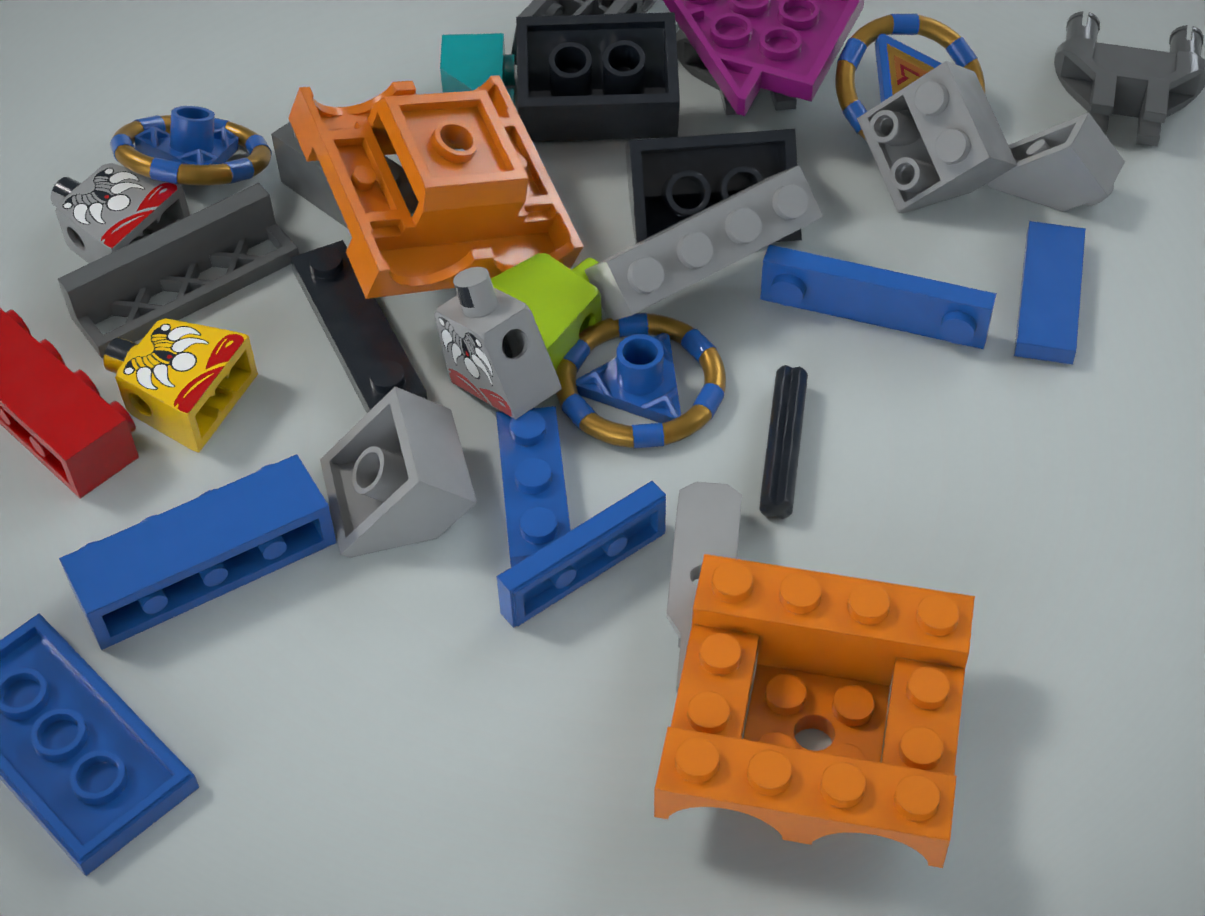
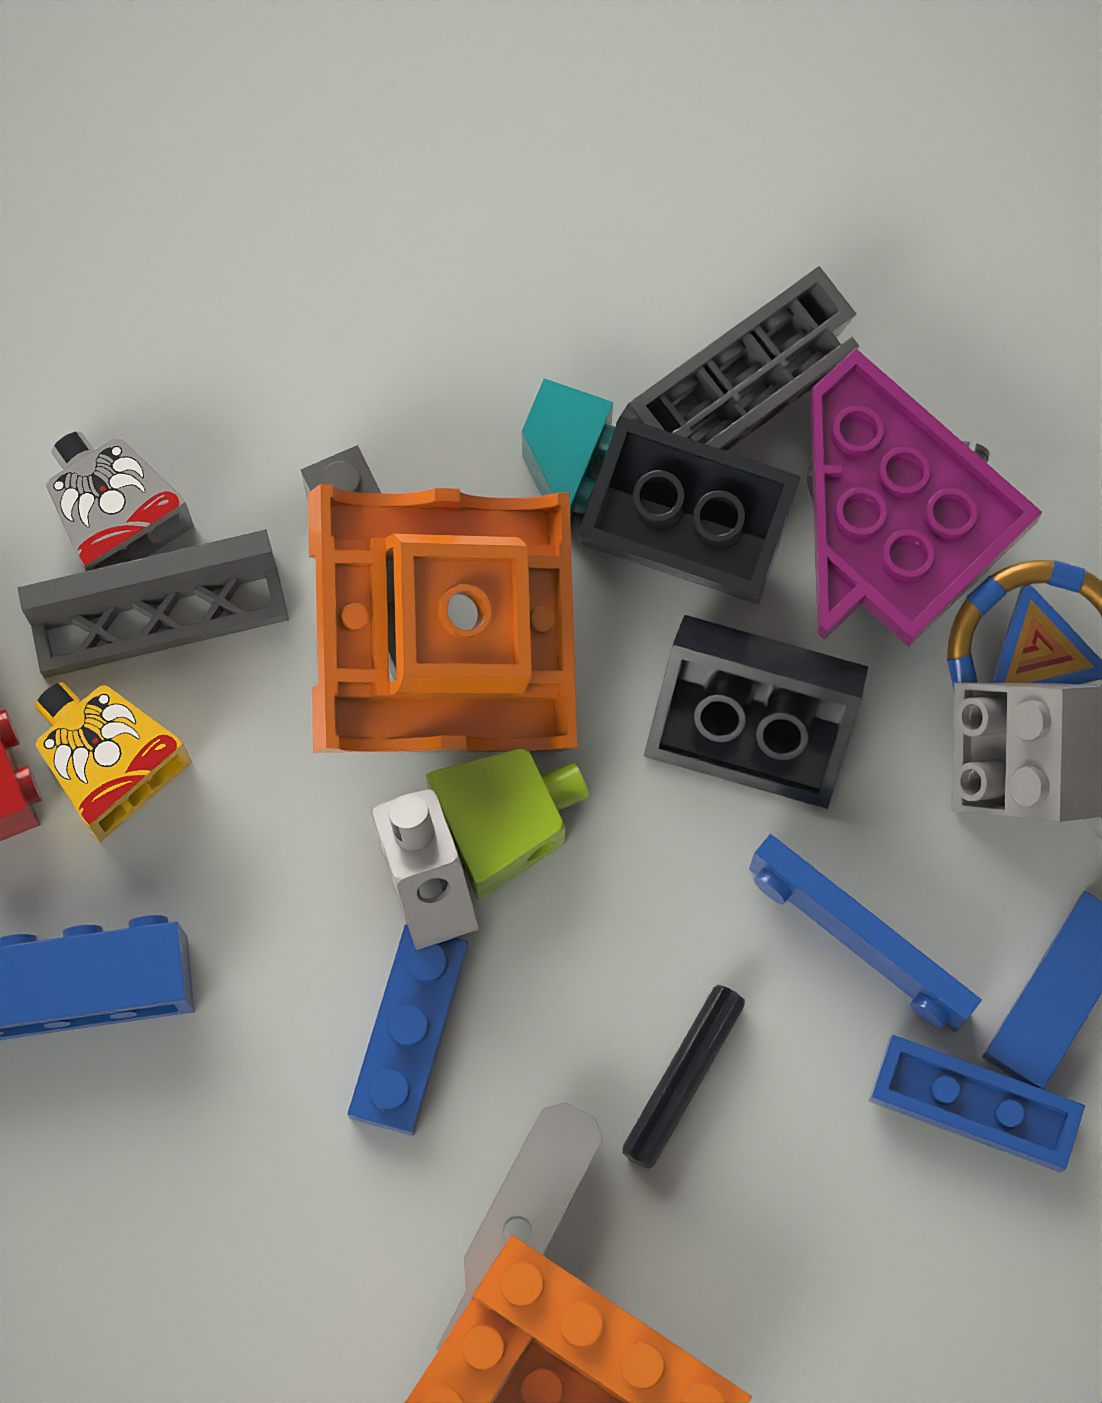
camera: 20 degrees right, 20 degrees up
(190, 148) = (216, 440): blue piece -> none
(354, 325) = (308, 782): black plate -> none
(397, 476) = (274, 972): light grey slope -> none
(582, 554) = (417, 1144): blue tile -> none
(640, 381) = (573, 935): blue piece -> none
(704, 243) = (701, 806): light grey brick -> none
(1030, 377) = (977, 1103): none -> blue plate

